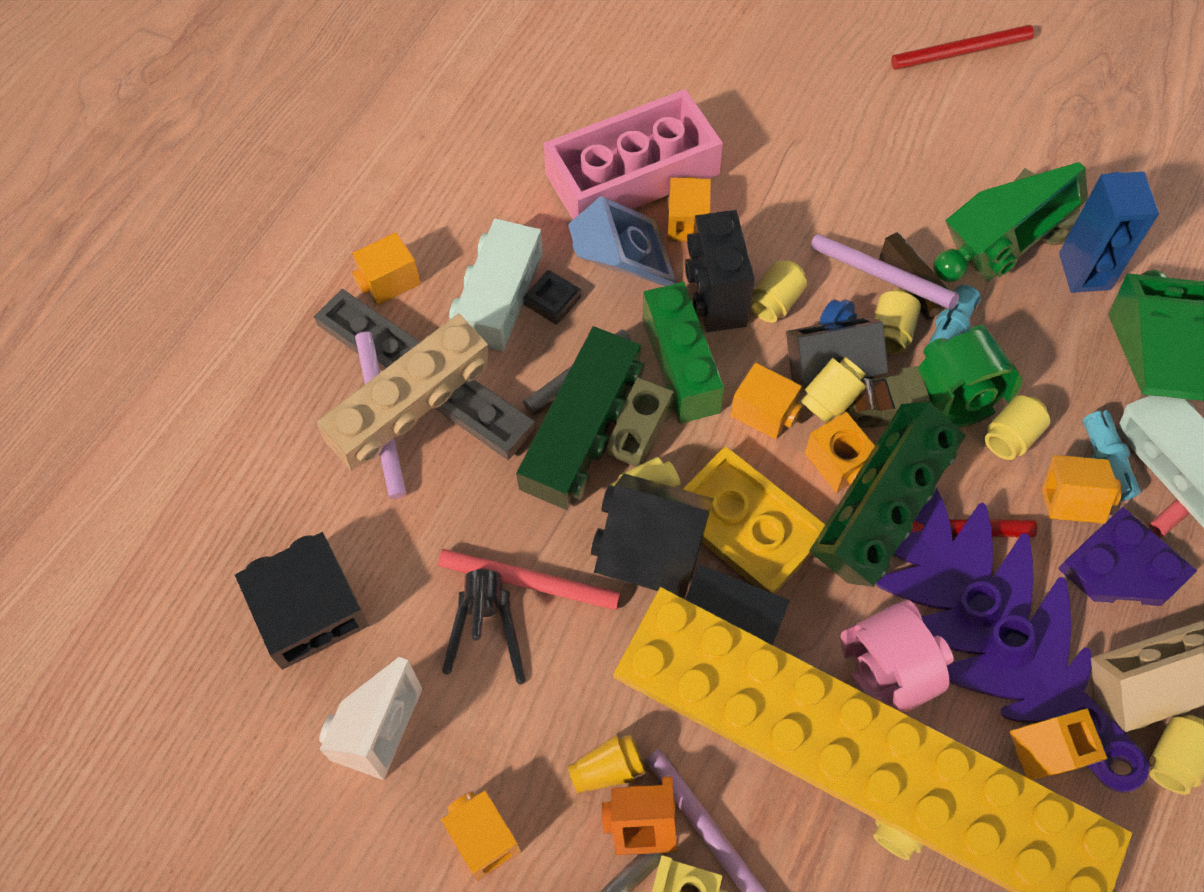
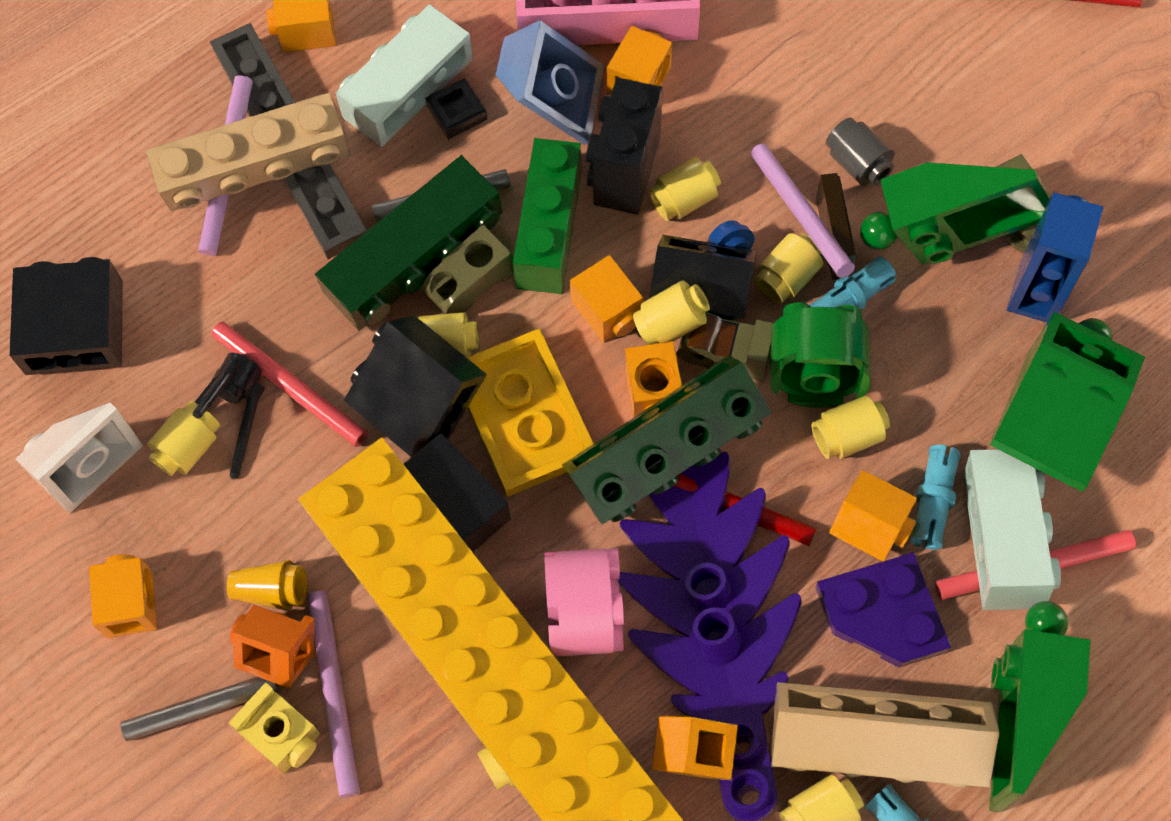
camera: 25 degrees right, 5 degrees up
(462, 667) = (182, 440): none -> light yellow brick
(898, 212) = (860, 152): none -> dark grey brick

